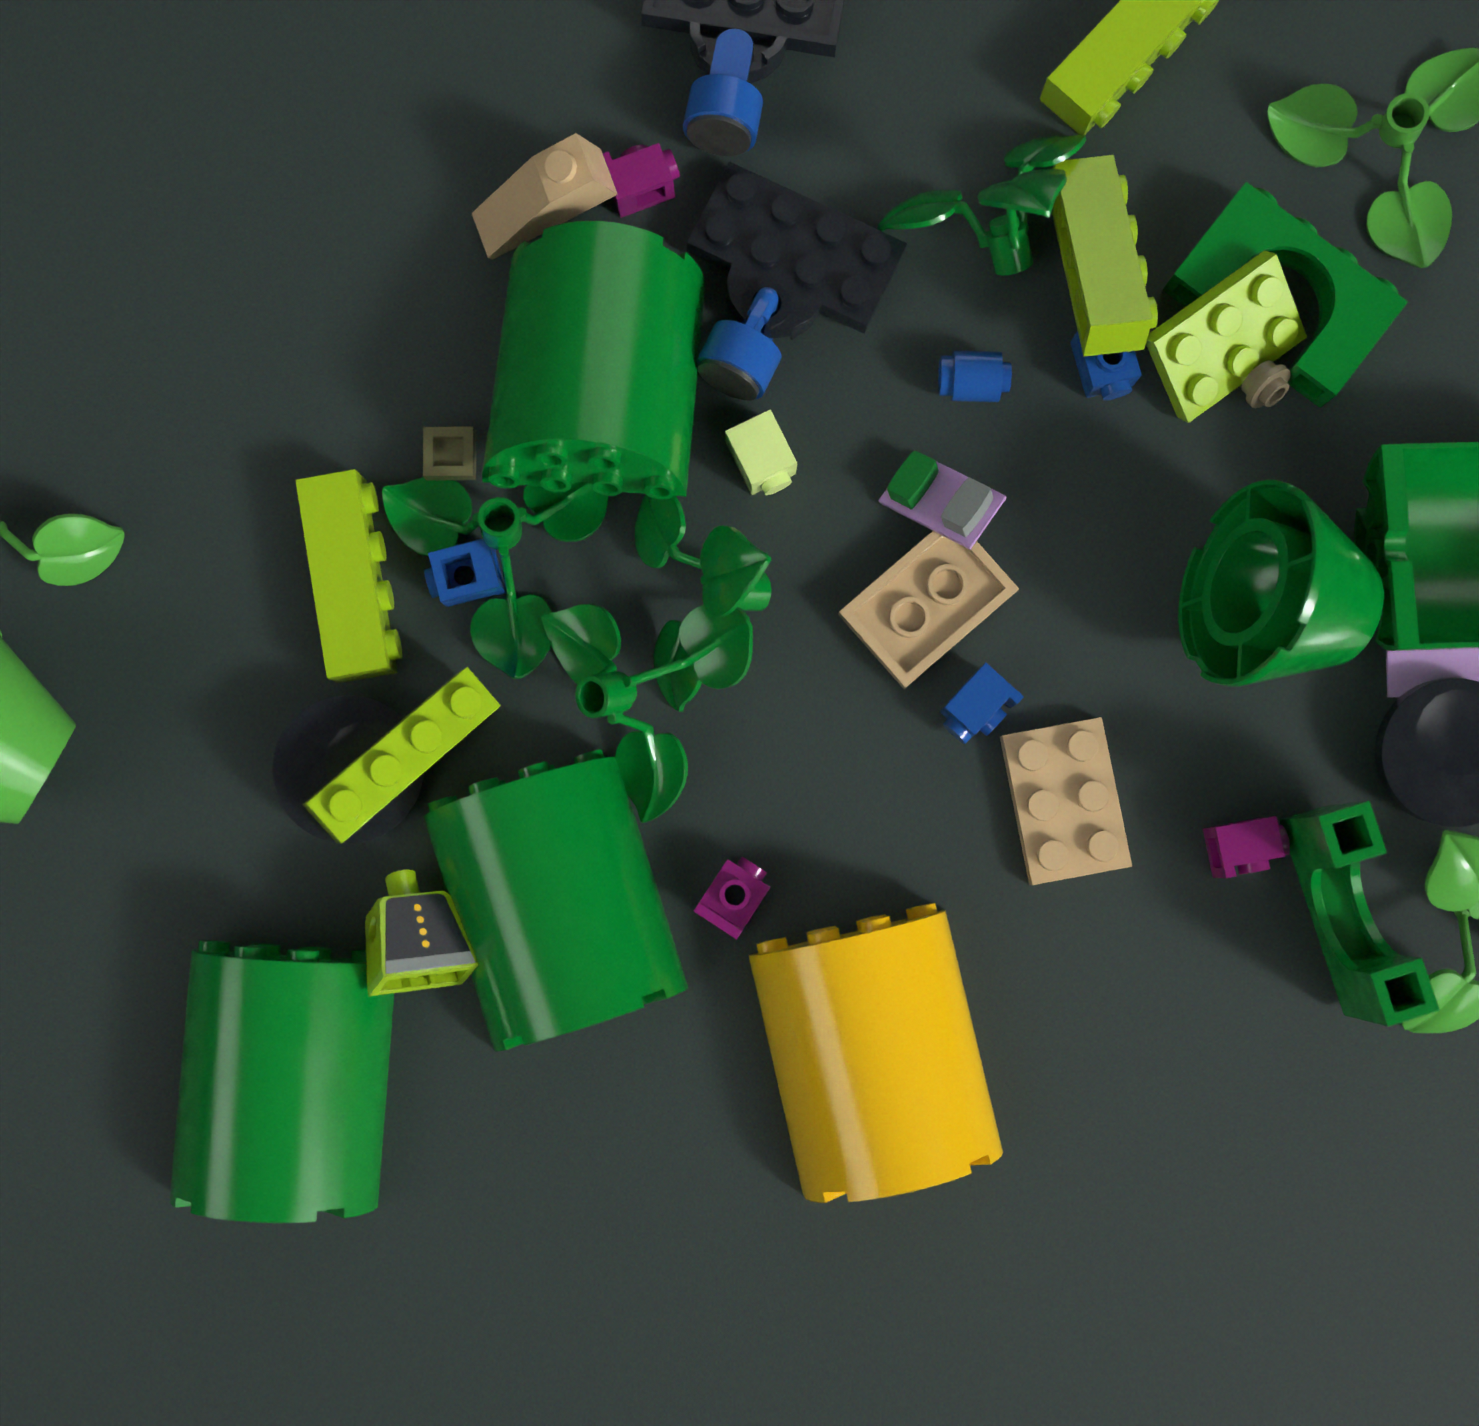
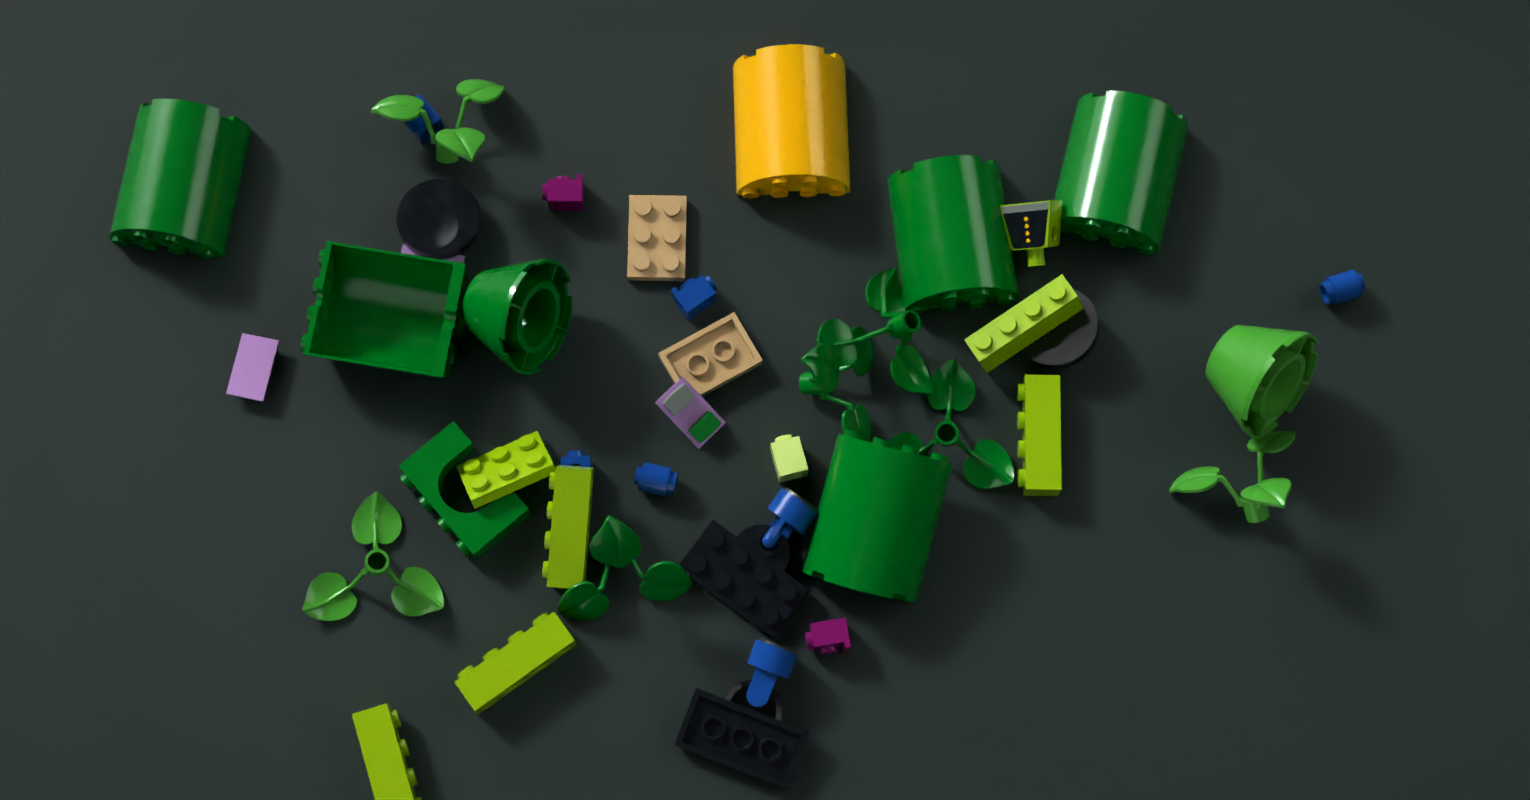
camera: 175 degrees left, 10 degrees down
(449, 453) = (970, 495): olive plate -> none
(450, 561) = (979, 414): blue brick -> none
(543, 194) = (888, 628): tan slope -> none
(728, 916) = (850, 230): magenta brick -> none
(1266, 384) = (487, 441): dark tan plate -> none
(1365, 970) = (521, 163): green arch -> none

